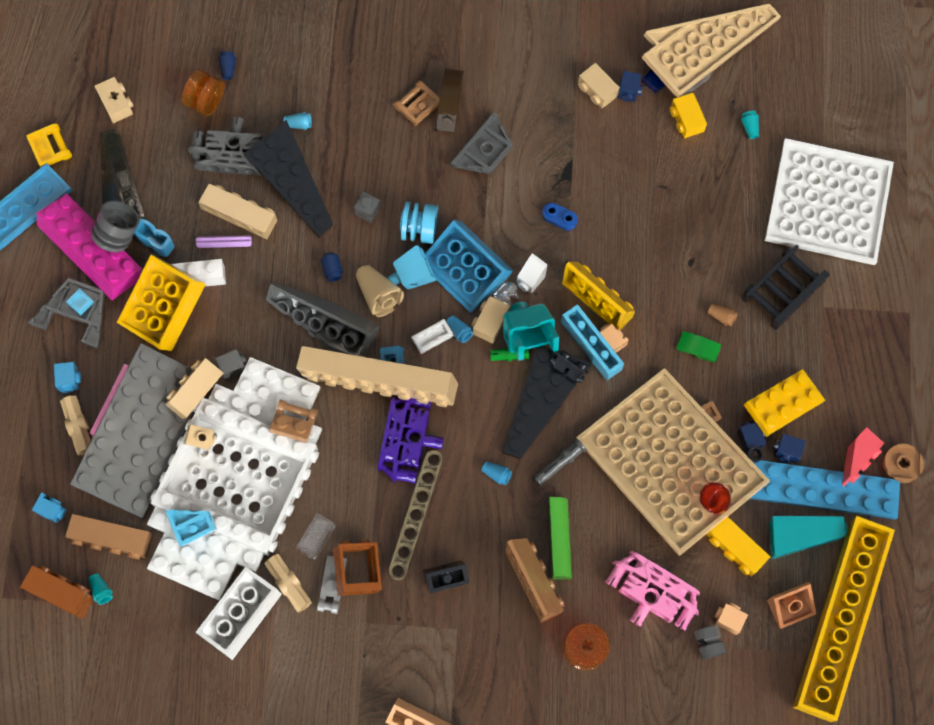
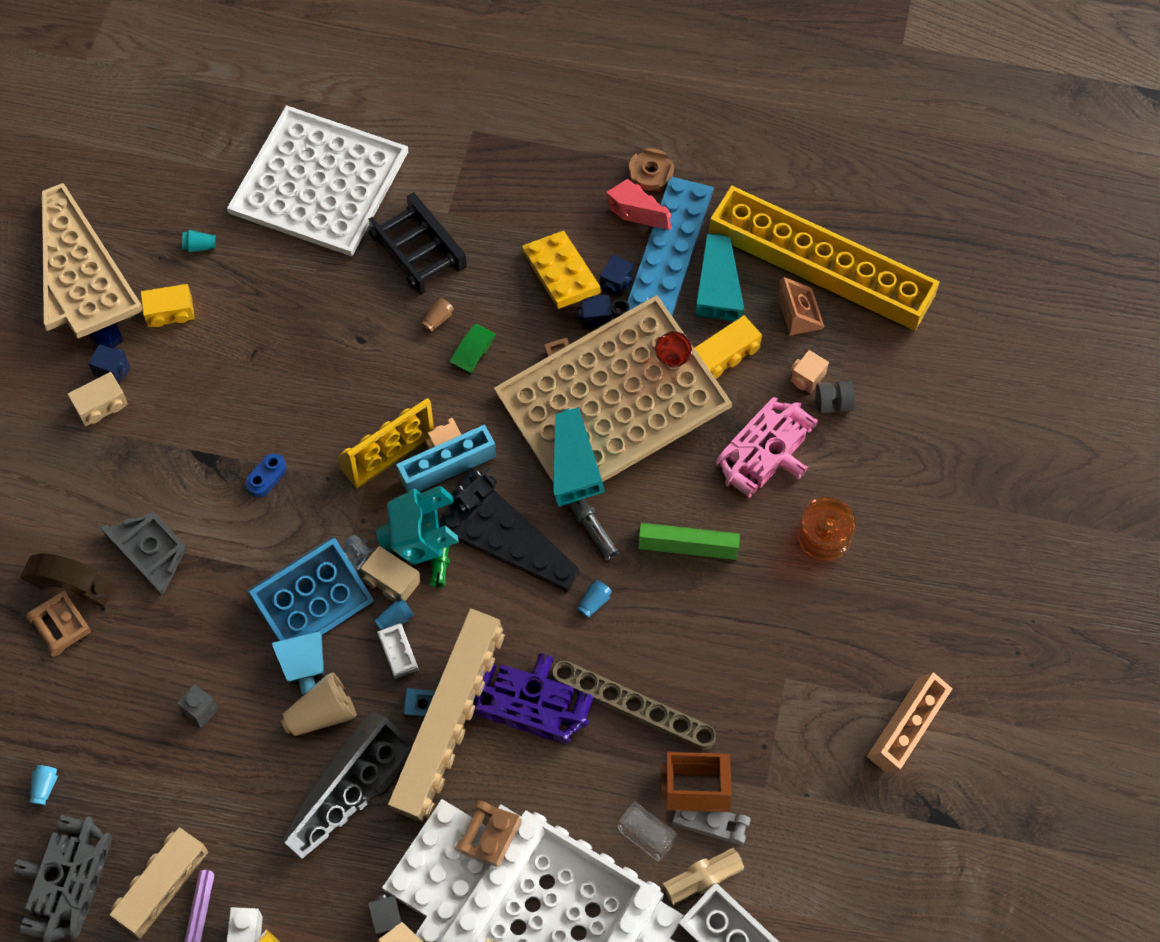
camera: 80 degrees left, 10 degrees down
(285, 169) = (113, 806): black wing -> none
(331, 267) = (272, 765): dark blue brick -> none
(419, 222) = (238, 638): medium azure wheel -> none
(446, 576) = (721, 675): black brick -> none
(531, 274) = (340, 514): white slope -> none
(533, 578) = (740, 575): medium nougat slope -> none
(605, 437) = (574, 461): none -> teal slope

